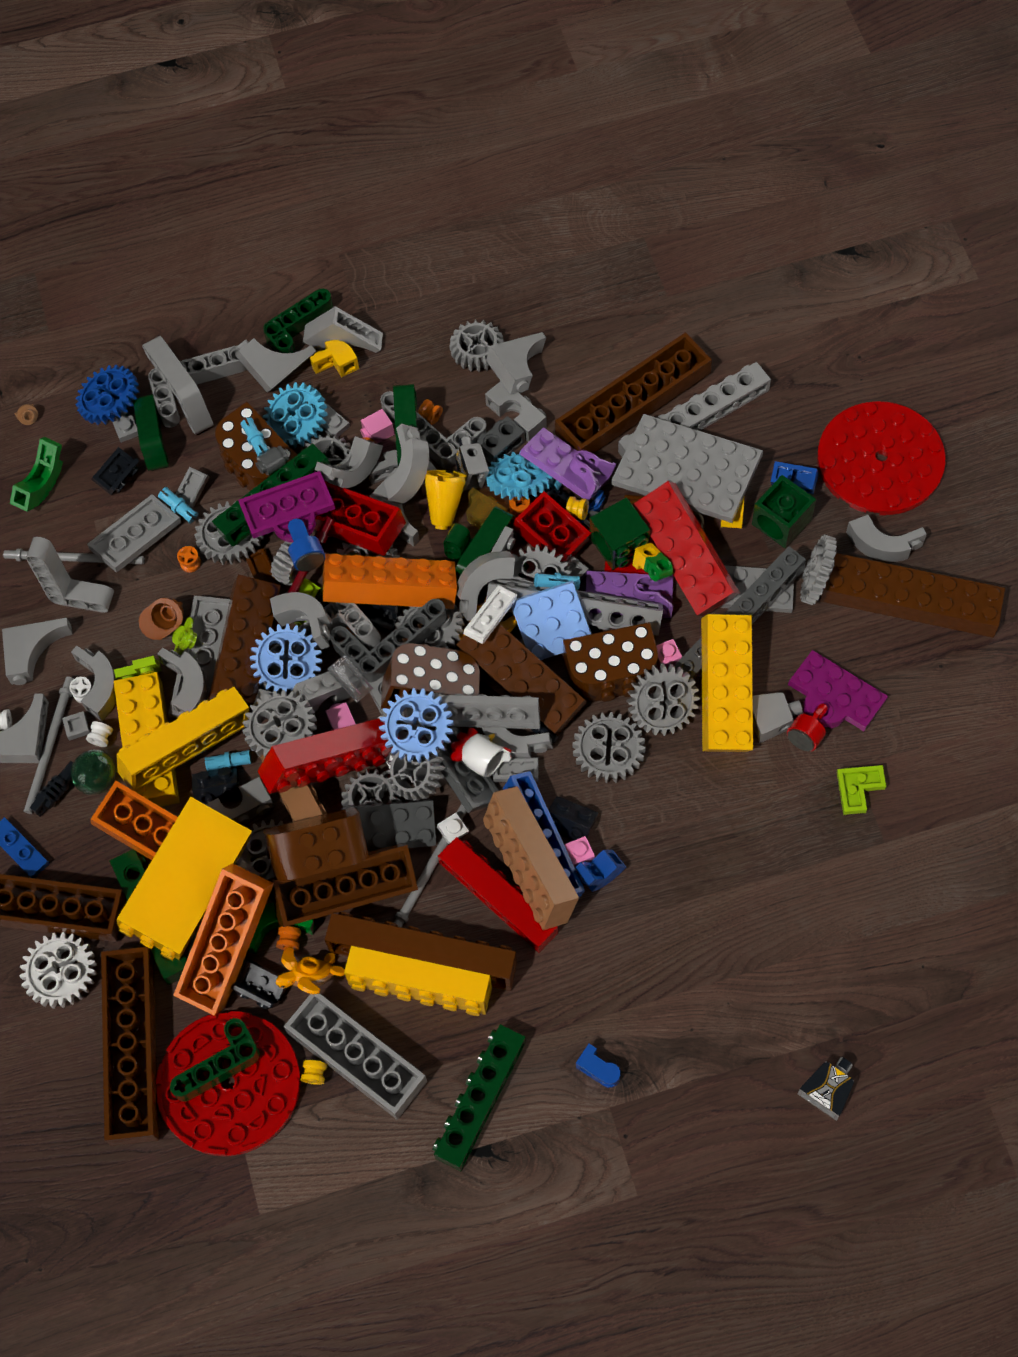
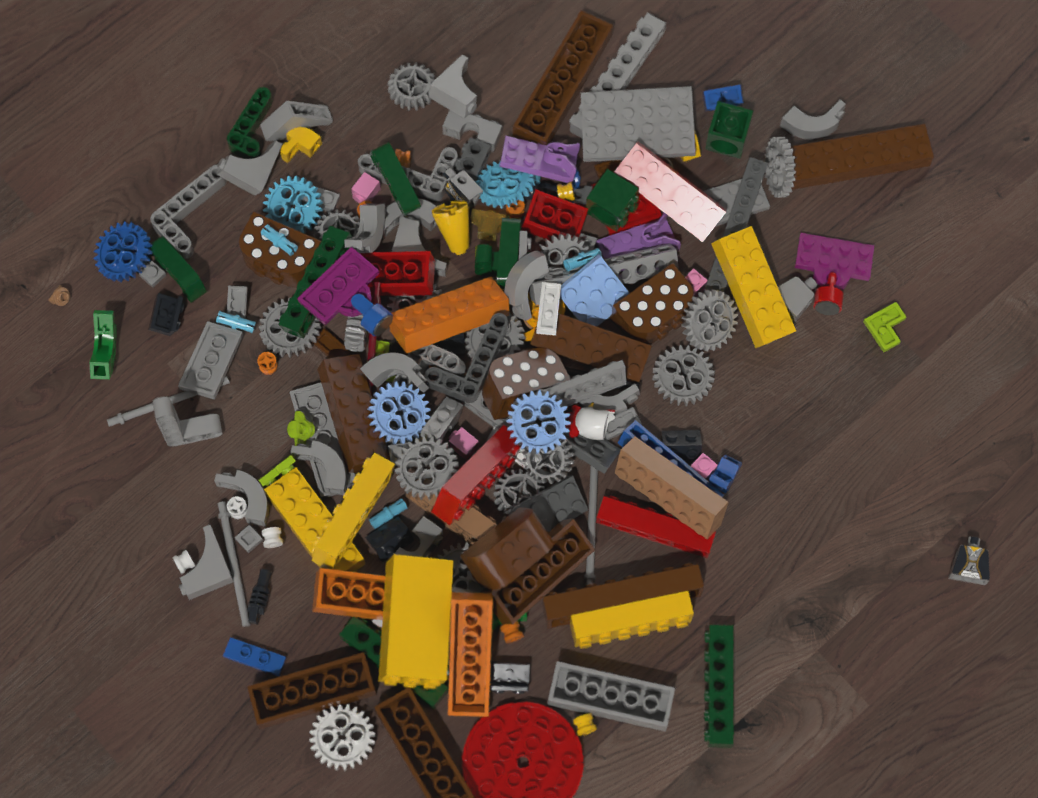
camera: 30 degrees left, 5 degrees up
(25, 645) = (170, 488): light grey arch -> none
(93, 772) = (285, 569): clear green cylinder -> none
(161, 618) = (273, 421): dark orange piece -> none
(180, 384) = (182, 215): light grey beam -> none
(213, 1064) = (508, 754): dark green beam -> none
(271, 460) = (304, 253): dark grey brick -> none
(308, 972) = (542, 651): light orange animal -> none
(350, 678) = (458, 406): clear tile -> none
(412, 467) = (422, 212): light grey arch -> none
(452, 828) = (595, 491): white plate -> none
(597, 1069) = (795, 625): blue leg -> none
(652, 562) = (650, 213): leg -> none
(884, 487) = (776, 79): red plate -> none

